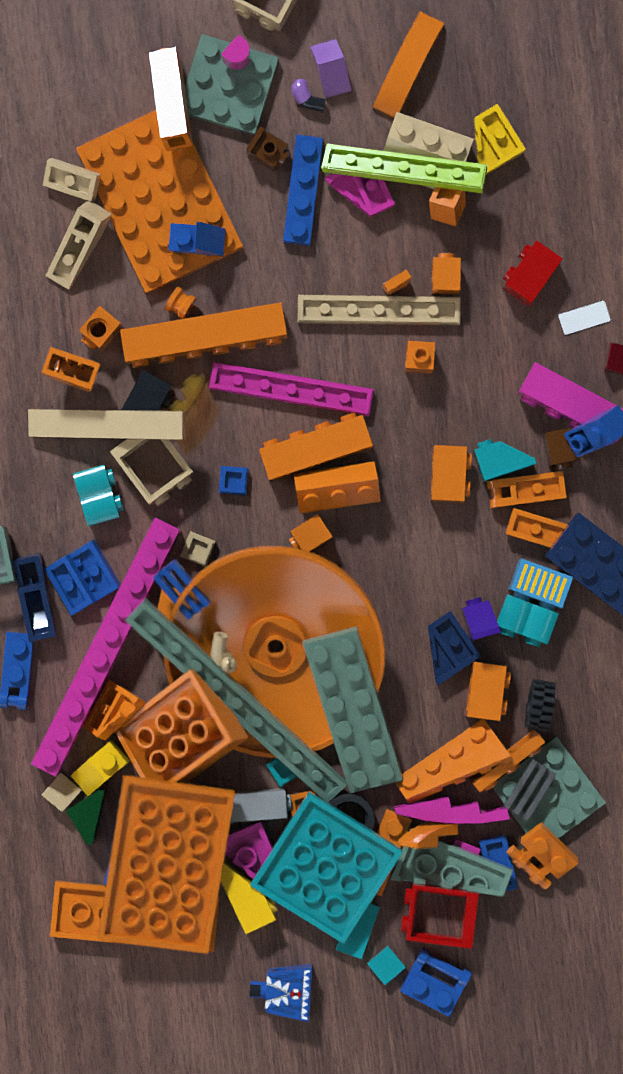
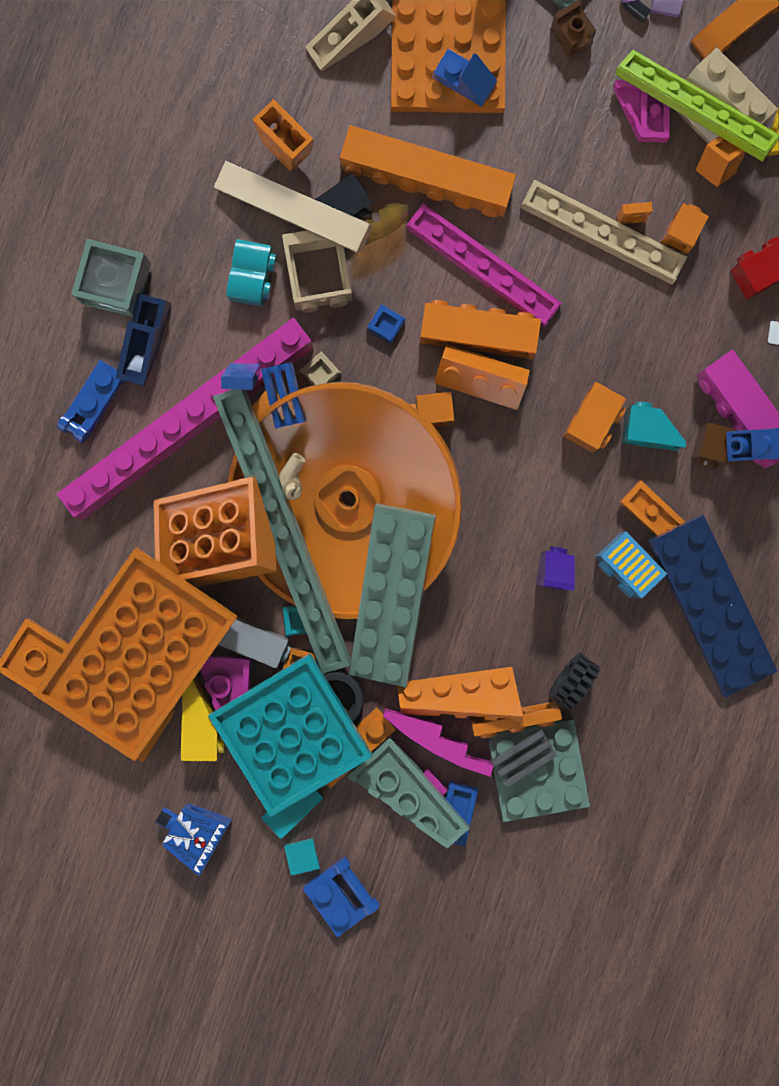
camera: 20 degrees right, 0 degrees up
(61, 792) = (75, 537): tan slope -> none
(82, 577) = (197, 344): blue slope -> none
(87, 815) = (88, 571): dark green slope -> none
(100, 767) = (124, 531): yellow slope -> none
(102, 317) = (331, 107): orange brick -> none
(112, 710) = (161, 482): orange wing -> none
(139, 592) = (240, 376): none -> blue tile
(180, 303) = (419, 130): orange wheel -> none
(303, 190) = (587, 85): blue plate -> none
(420, 357) = (622, 293): orange brick -> none
(427, 834) = (403, 751): orange slope -> none
(450, 647) = (513, 583): dark blue wing -> none
(466, 936) = (403, 851): red window -> none
(487, 690) = (529, 642): orange brick -> none
(526, 620) = (600, 594): teal brick -> none
(527, 489) = (662, 470): orange plate -> none
(547, 849) = (513, 827): orange plate -> none

